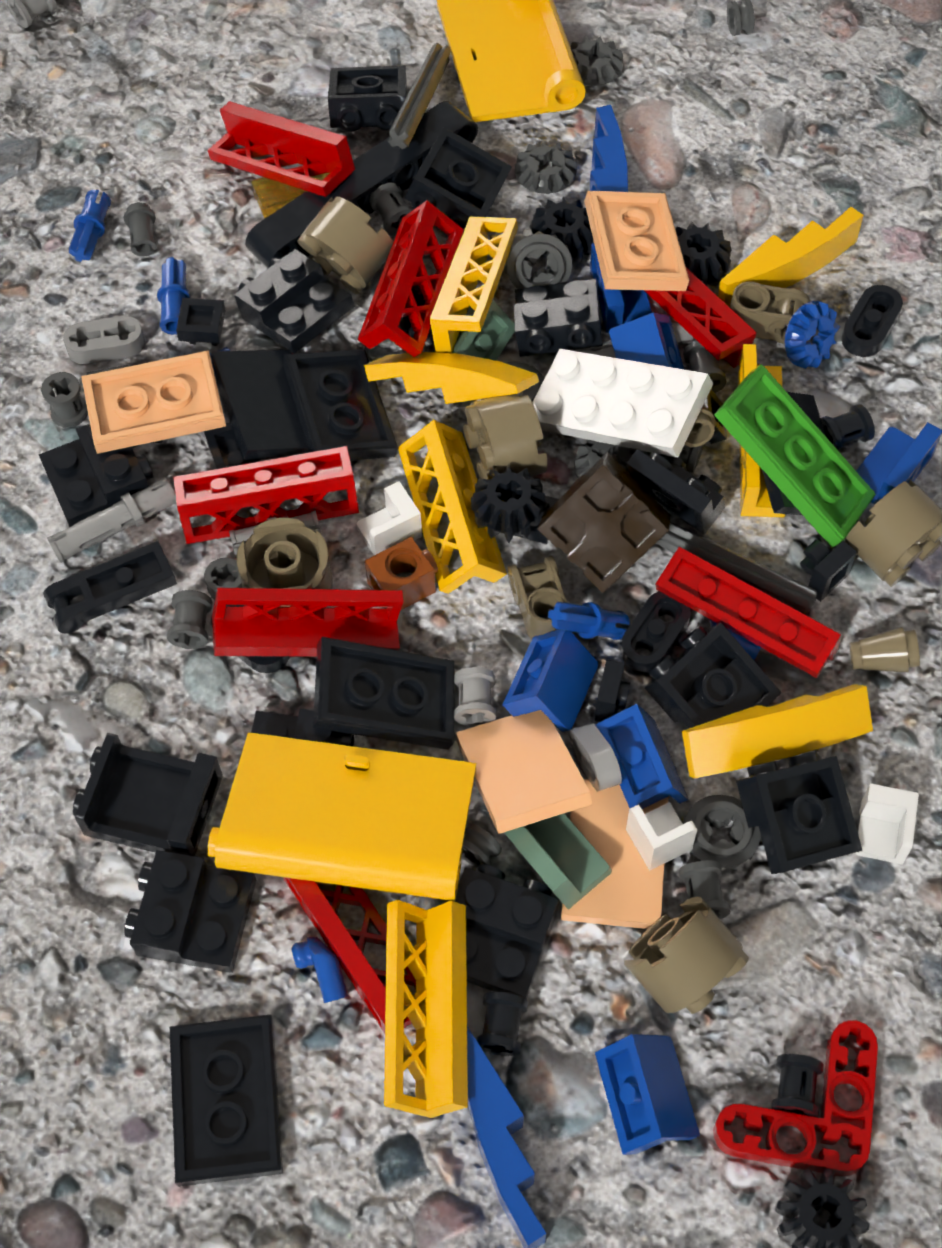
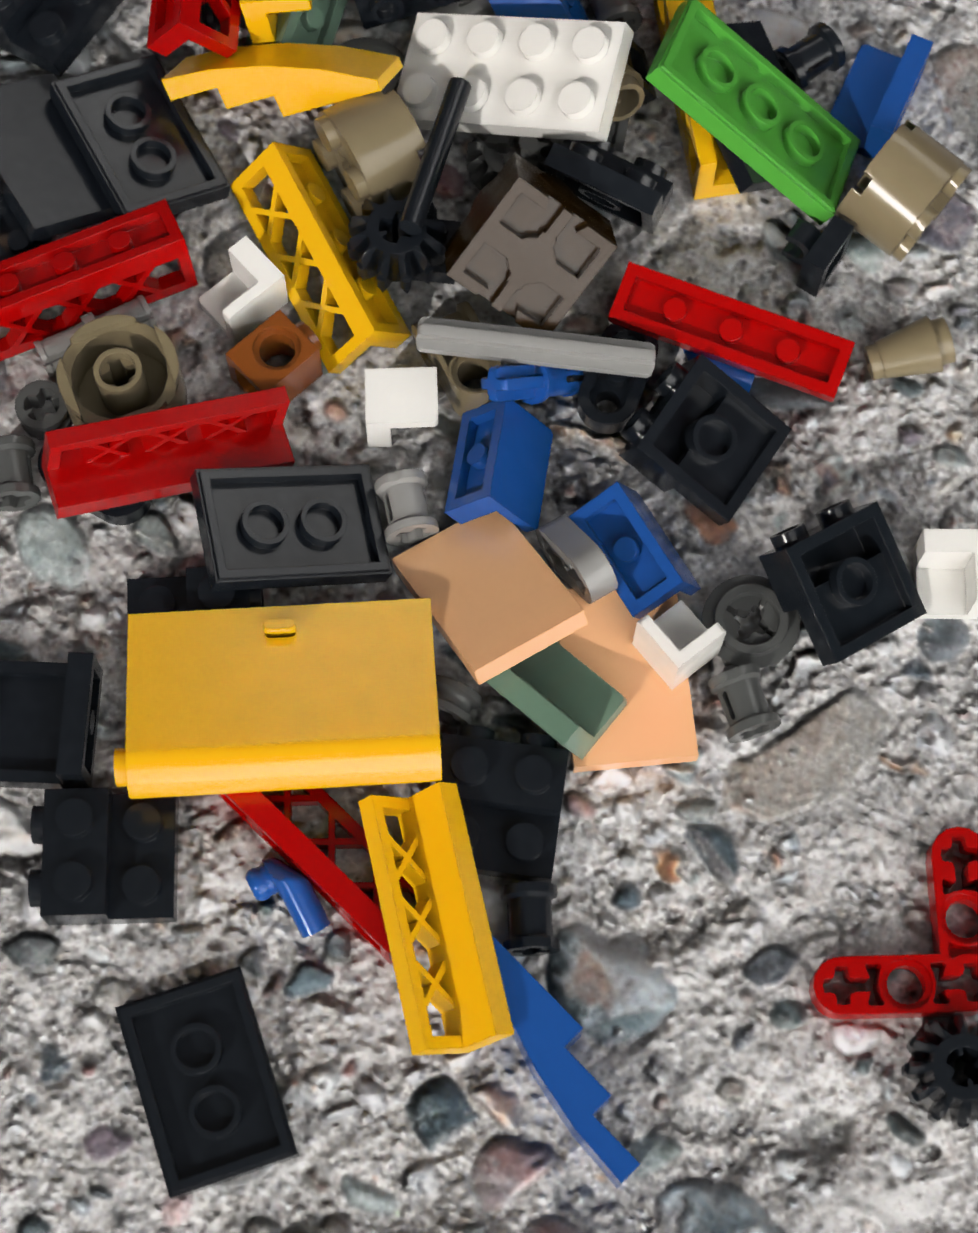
camera: 15 degrees left, 10 degrees up
(487, 617) = (399, 400): none -> white panel
(547, 446) = (434, 156): none -> black bar
(595, 595) = (535, 347): none -> light grey axle
(612, 691) = (580, 468): black plate -> none
(646, 1092) = (721, 966): blue panel -> none
(685, 957) = (740, 793): dark tan brick -> none
(753, 573) = (713, 273): dark grey axle -> none
(777, 731) = (795, 484): yellow slope -> none
(797, 1084) = (901, 919): black bush -> none

